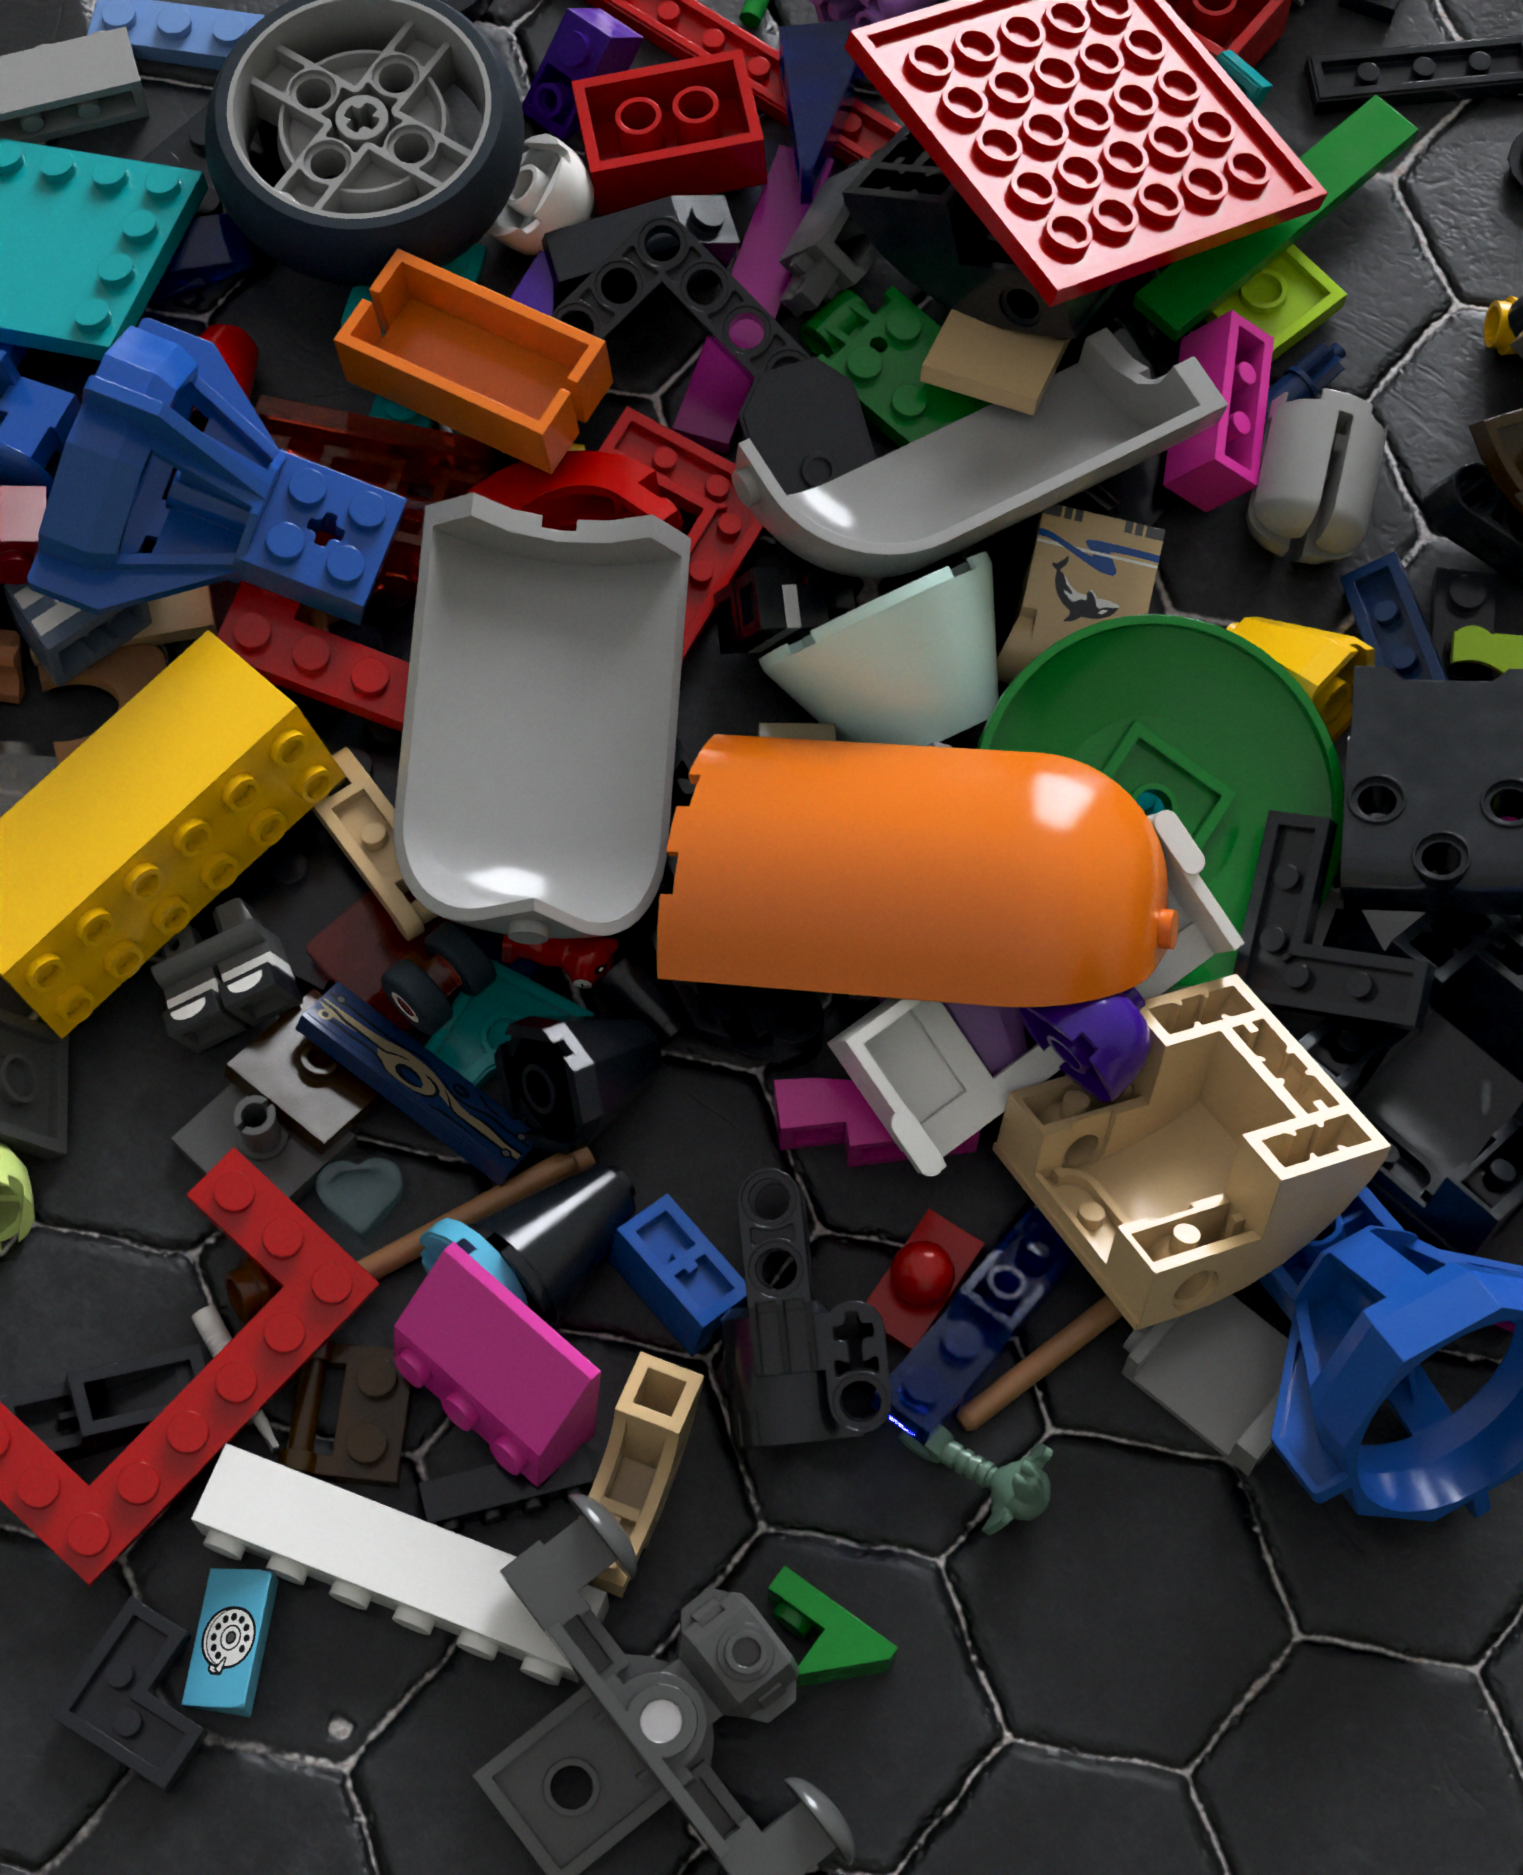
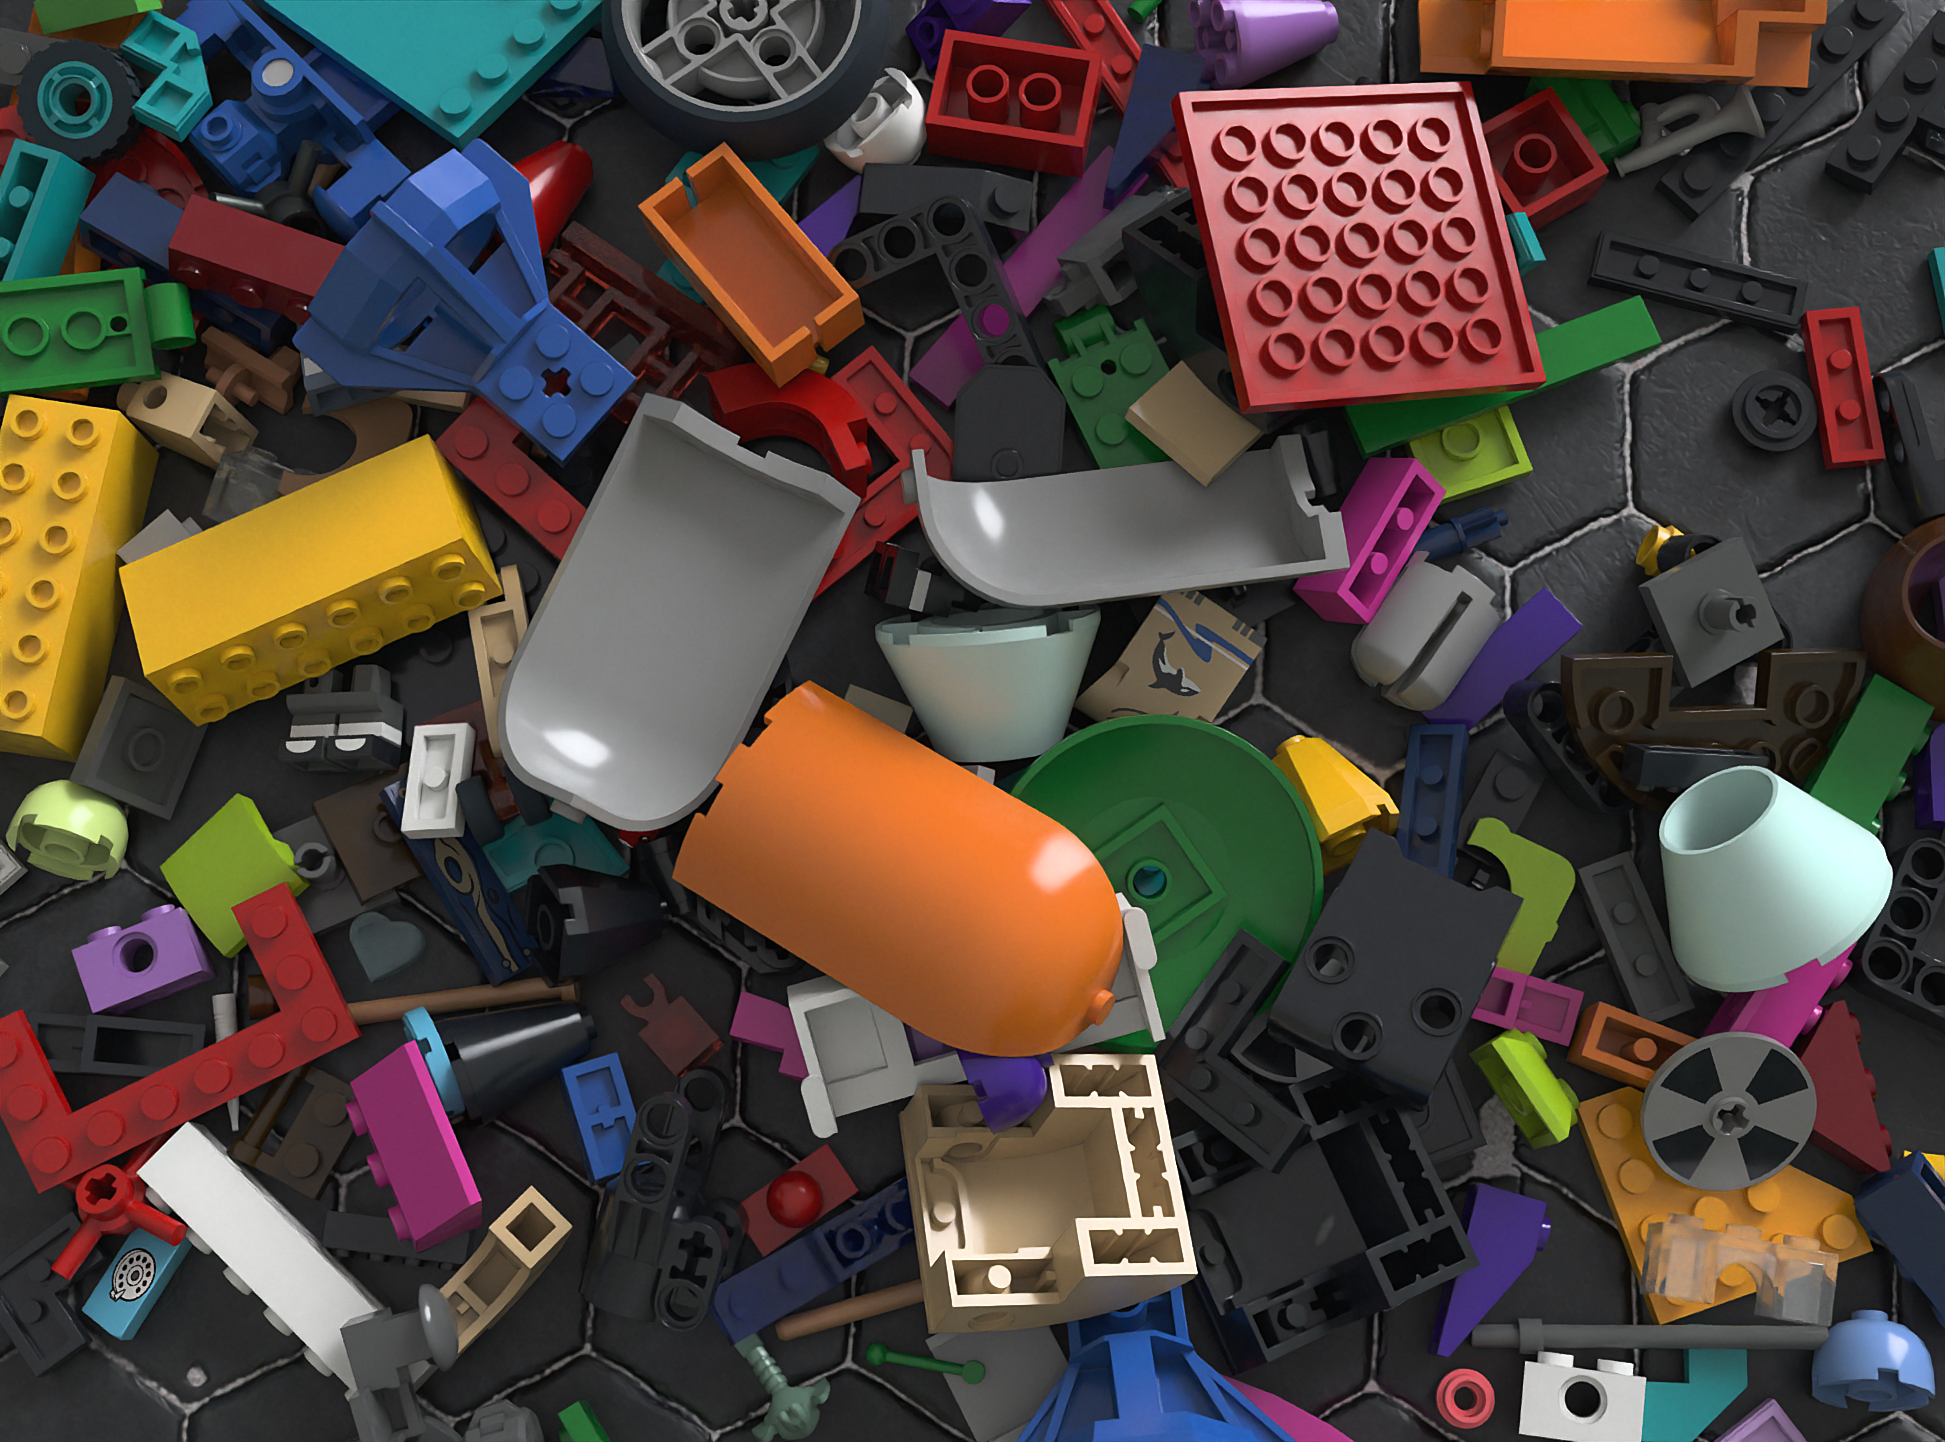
camera: 20 degrees right, 10 degrees up
(142, 1300) = (177, 964): none -> medium lavender brick
(151, 1168) = (226, 865): none -> lime slope
(178, 1569) = (115, 1203): none -> red bar
(351, 973) = (437, 764): none -> white plate
(716, 1153) = (674, 1030): none -> clear red brick
(1188, 1381) = (972, 1372): none -> green hinge
(1408, 468) = (1508, 656): none -> dark purple slope

